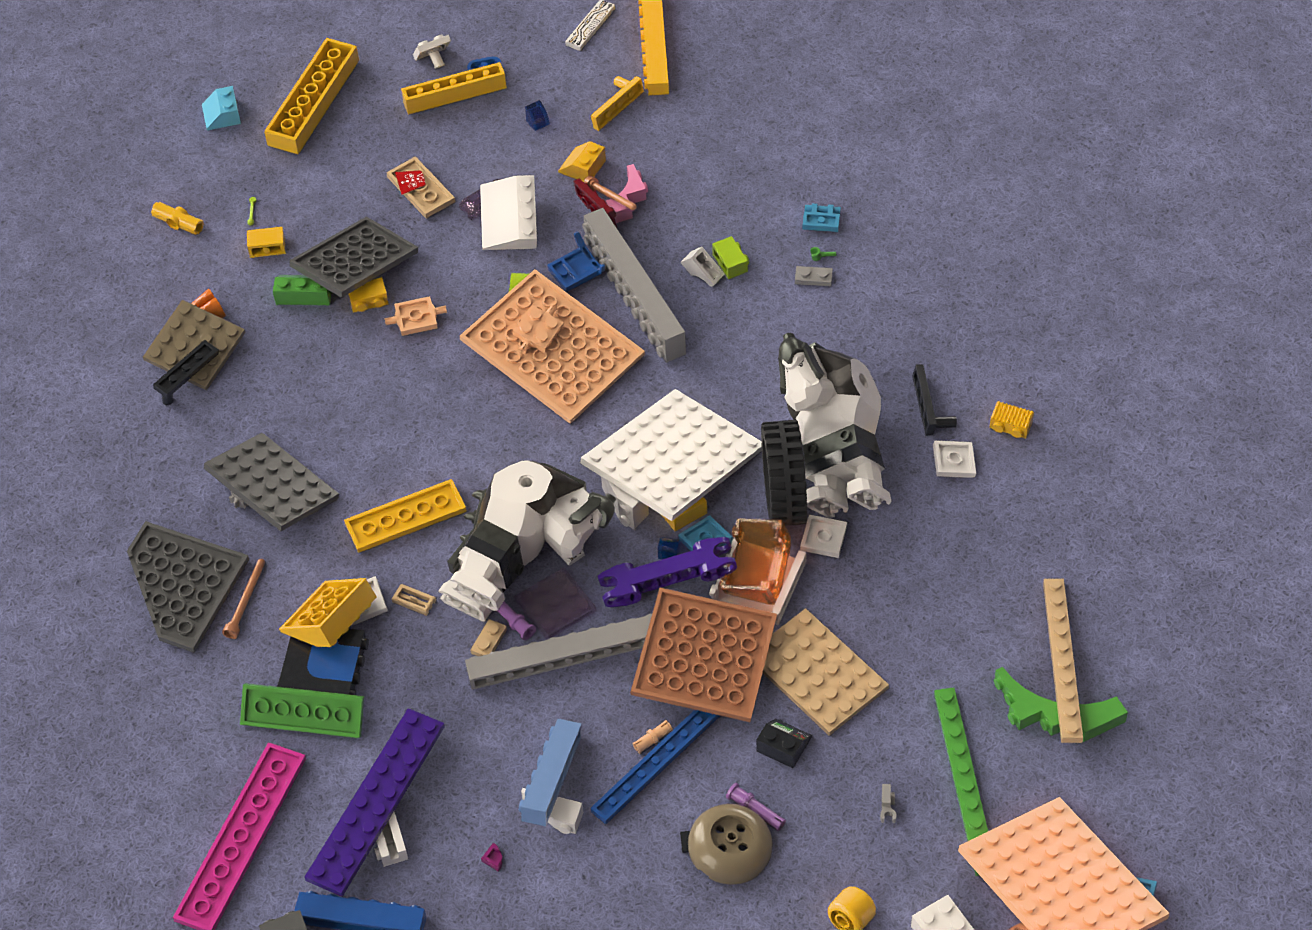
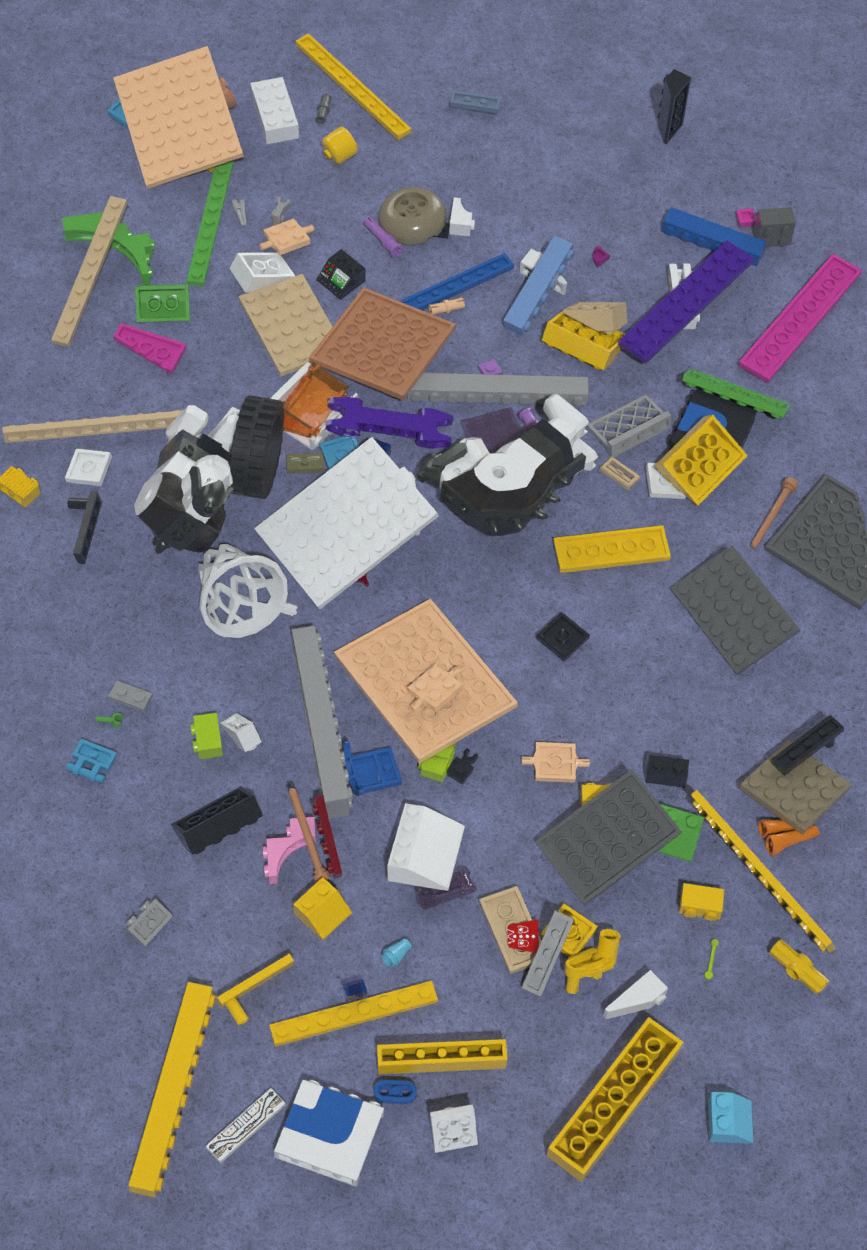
camera: 170 degrees left, 5 degrees up
(217, 270) = (766, 877): none -> yellow plate
(307, 165) = (640, 996): none -> white slope
(312, 329) = (667, 771): none -> black brick
(350, 172) = (593, 960): none -> yellow piece
(375, 193) = (584, 930): none -> yellow plate
(386, 164) = (547, 953): none -> light grey plate
(399, 644) = (637, 433): none -> light grey fence
(434, 422) = (562, 636): none -> black plate
(478, 762) = (599, 315): none -> tan slope
(484, 741) = (582, 341): none -> yellow slope
(496, 293) = (462, 769): none -> black plate
(512, 148) = (394, 954): none -> medium azure cone
(517, 114) = (353, 1013): none -> yellow plate
(524, 30) = (329, 1132): none -> white panel
(581, 677) = (490, 368): none -> medium lavender plate
(670, 852) = (461, 220): none -> white arch
(695, 200) = (217, 820): none -> black slope
(721, 120) = (148, 921): none -> light grey bracket
(723, 358) = (262, 613): none -> white piece
(729, 519) = (305, 463): none -> olive plate
(865, 775) = (286, 237): none -> light nougat plate
(874, 720) = (259, 270): none -> white slope
(936, 799) = (239, 209): none -> light grey piece
(950, 600) = (153, 347): none -> dark pink wing
(967, 497) = (87, 427): none -> tan plate
(968, 653) = (162, 302): none -> bright green slope

